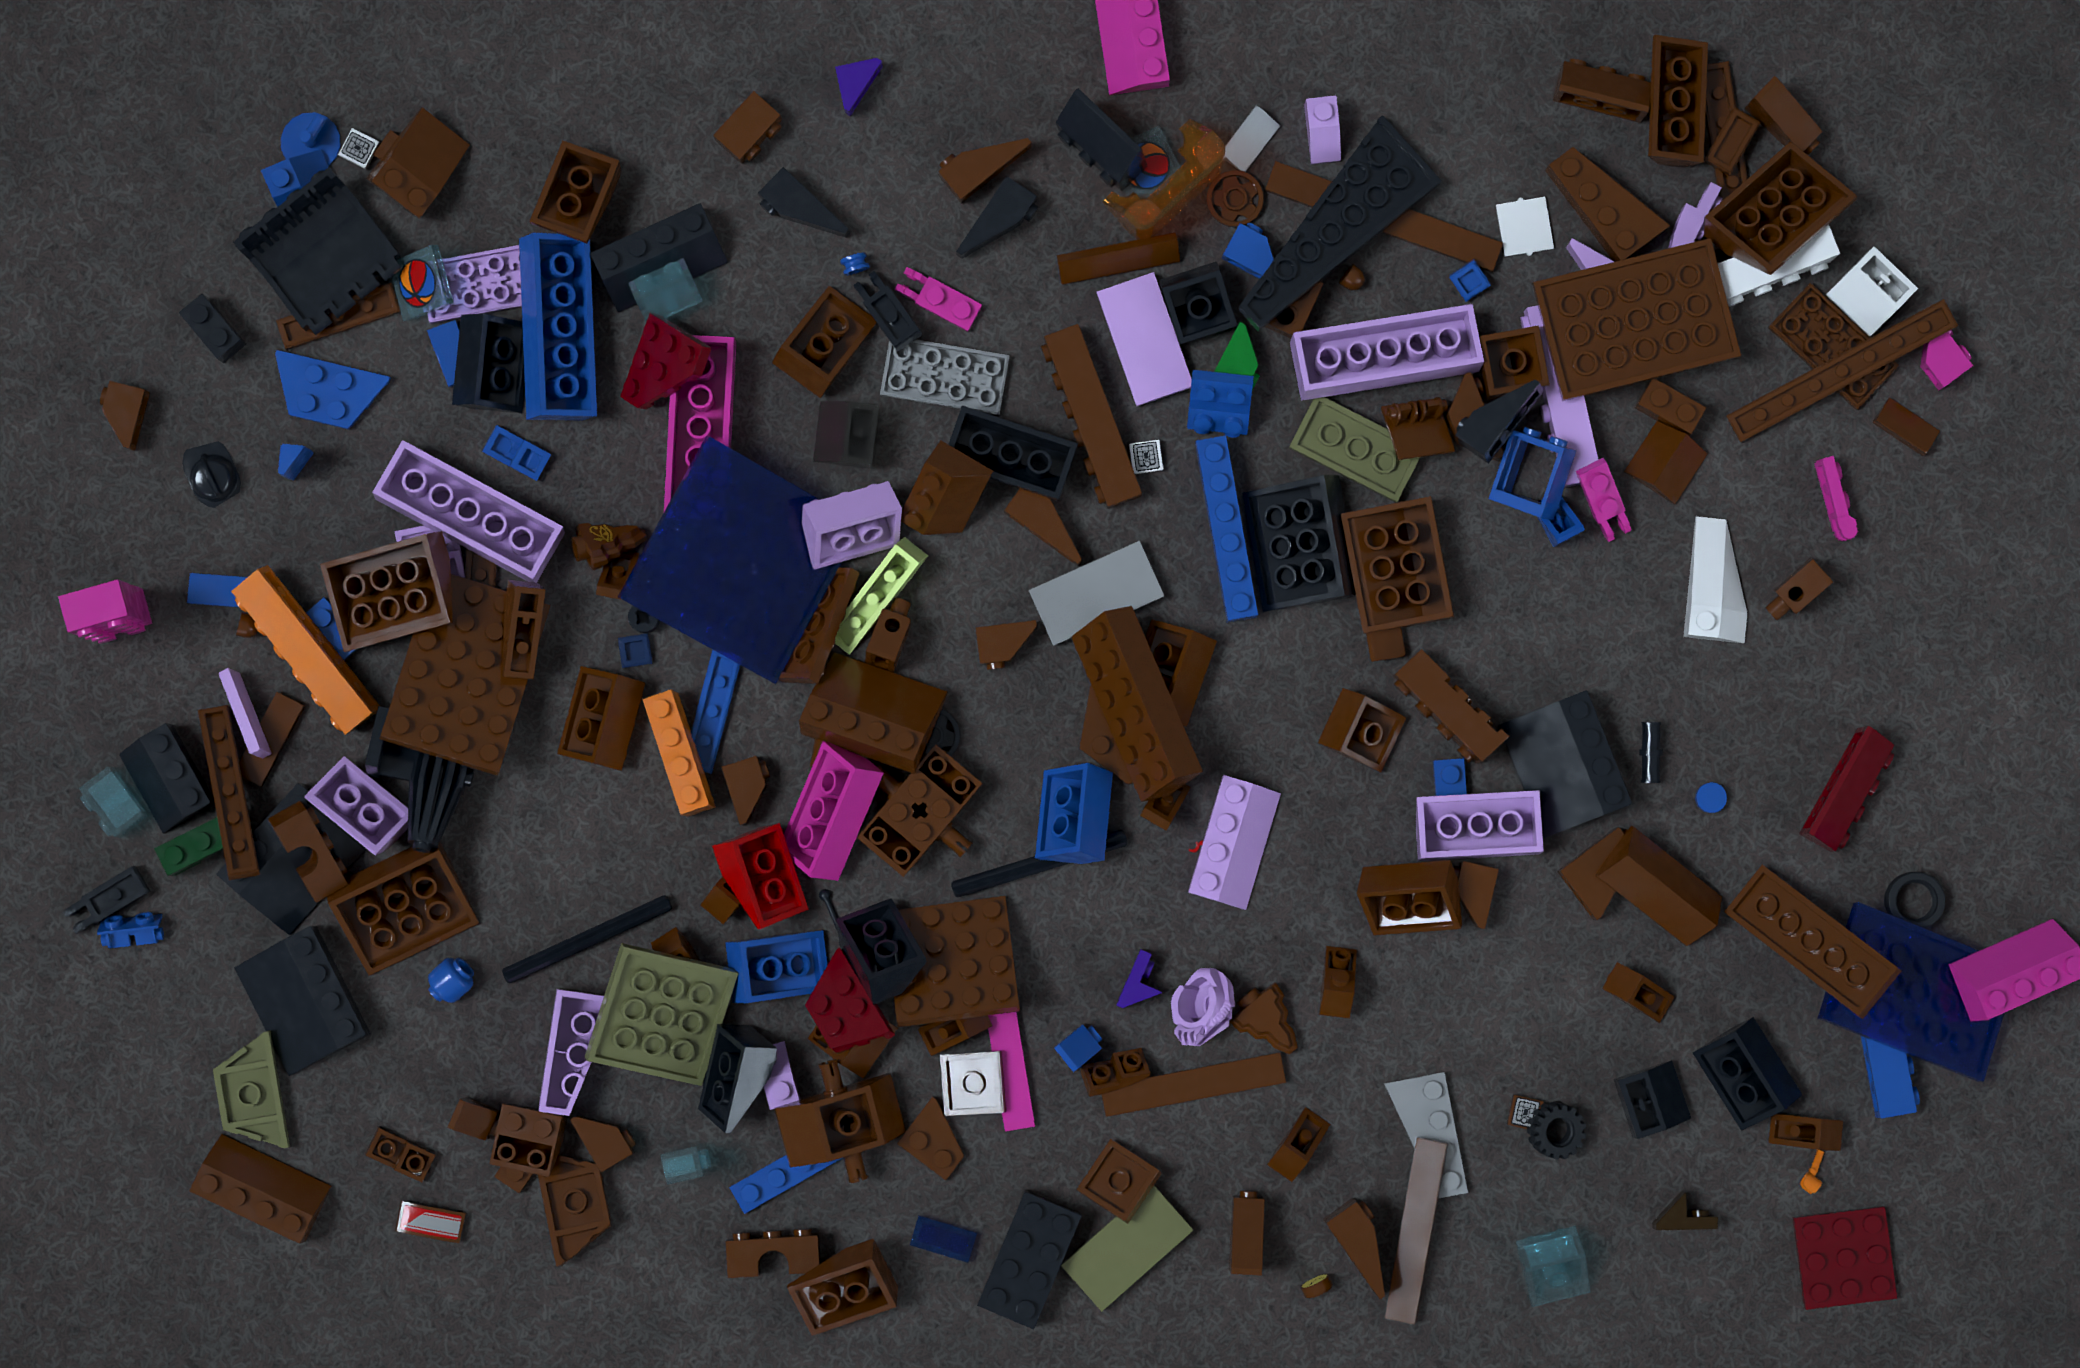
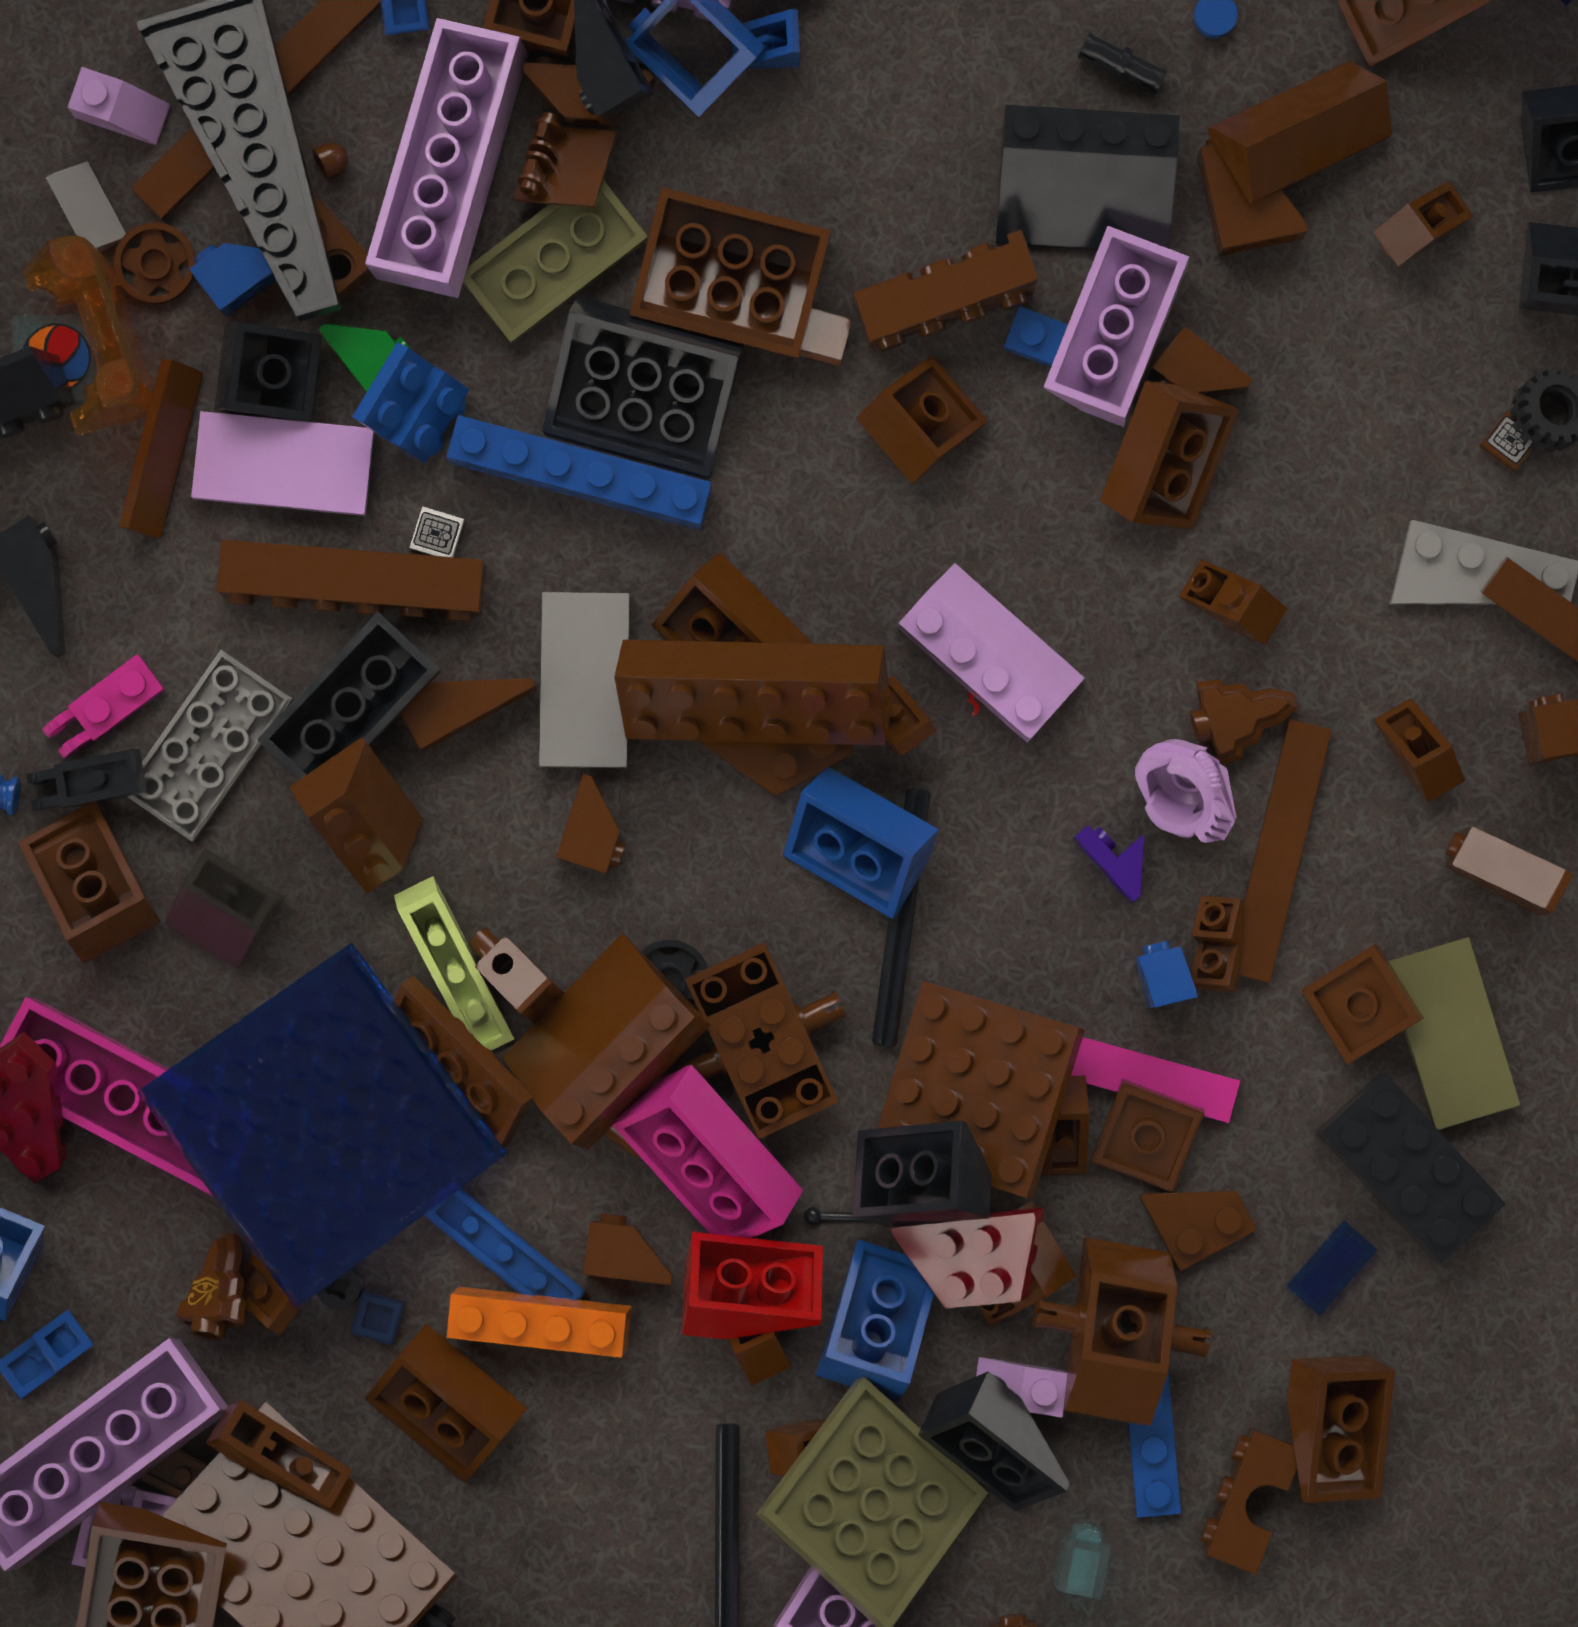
camera: 70 degrees left, 0 degrees up
(851, 524) = (345, 956): lavender slope -> none

